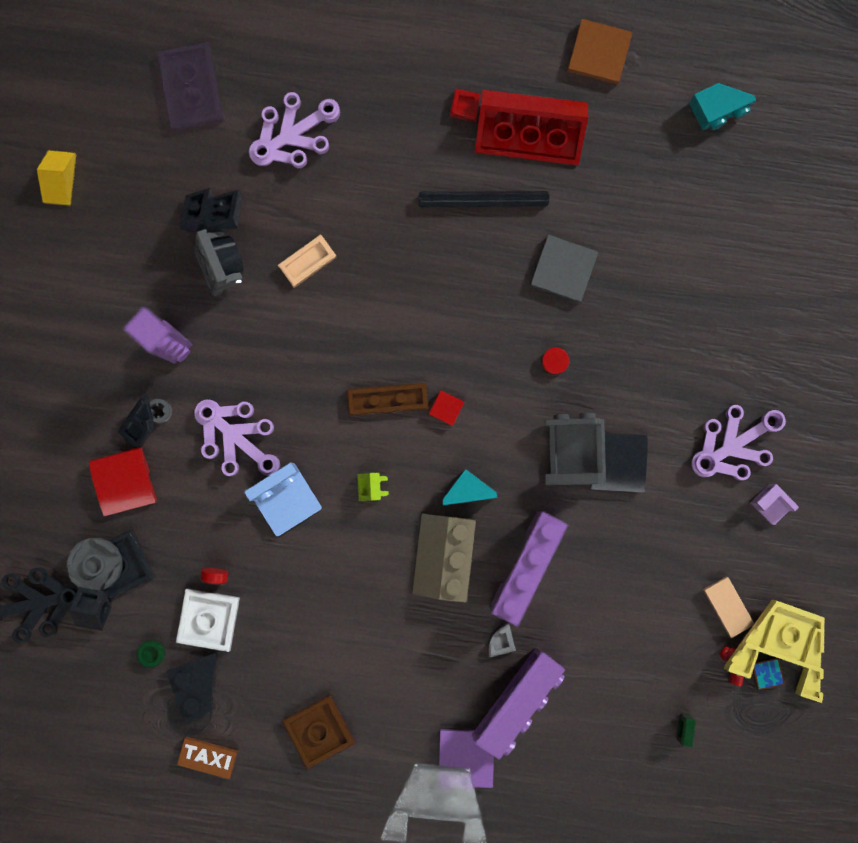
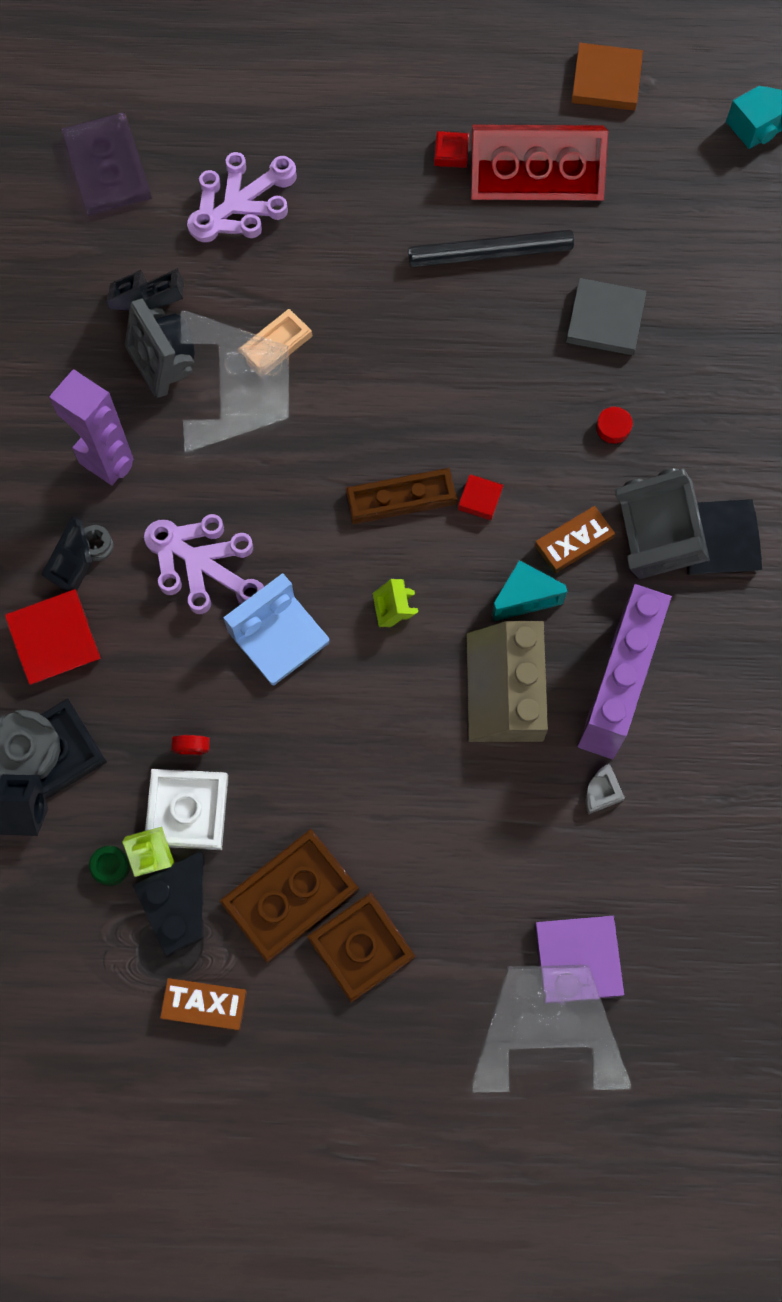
camera: 10 degrees left, 15 degrees down
(178, 650) = (148, 851): none -> lime tile
(273, 690) = (289, 895): none -> reddish brown tile
(284, 297) = (250, 381): none -> clear wing
(511, 450) = (574, 539): none -> dark orange tile
(518, 703) = (643, 862): medium lavender slope -> none

